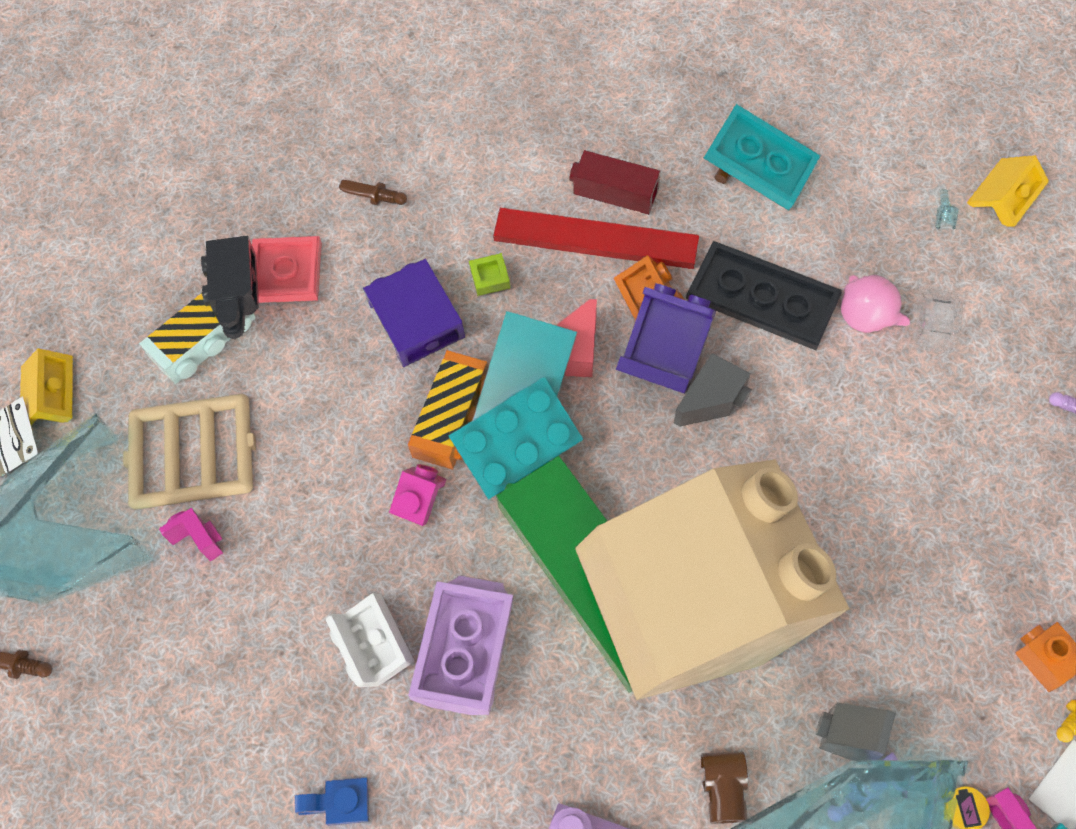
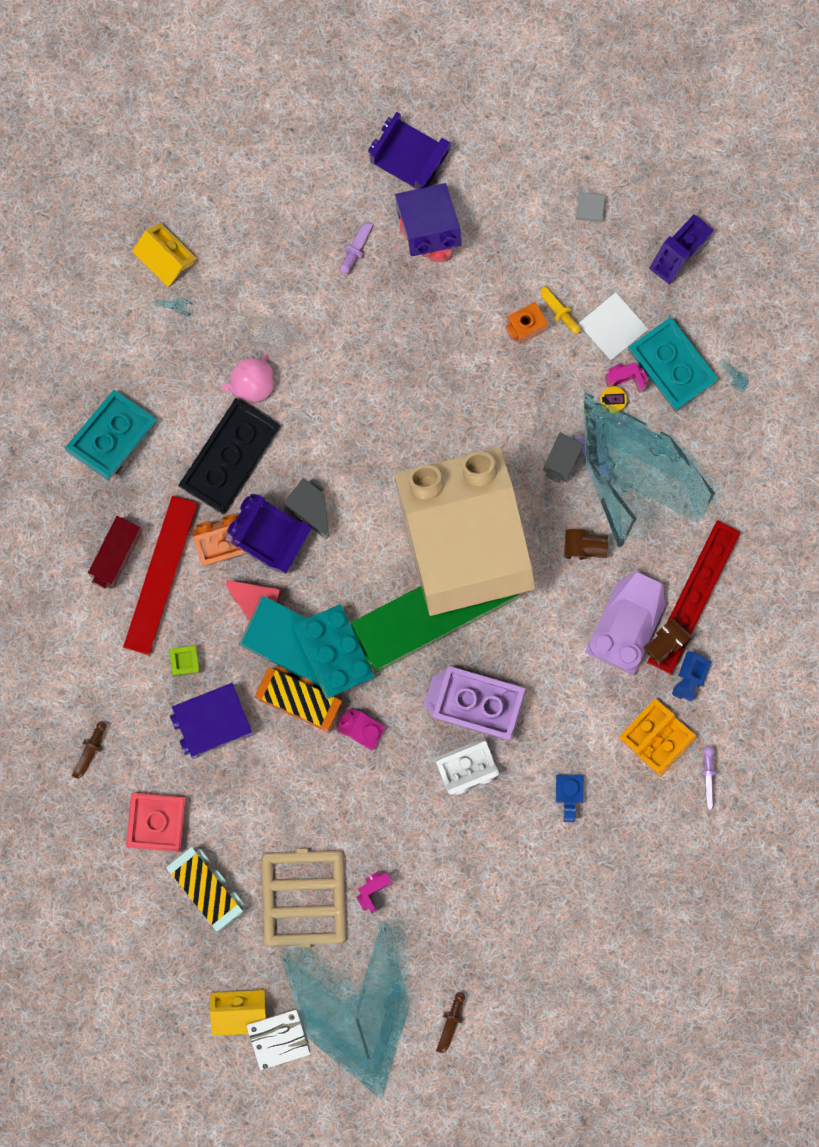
camera: 90 degrees left, 15 degrees up
(230, 282) = (179, 854): black hinge -> none

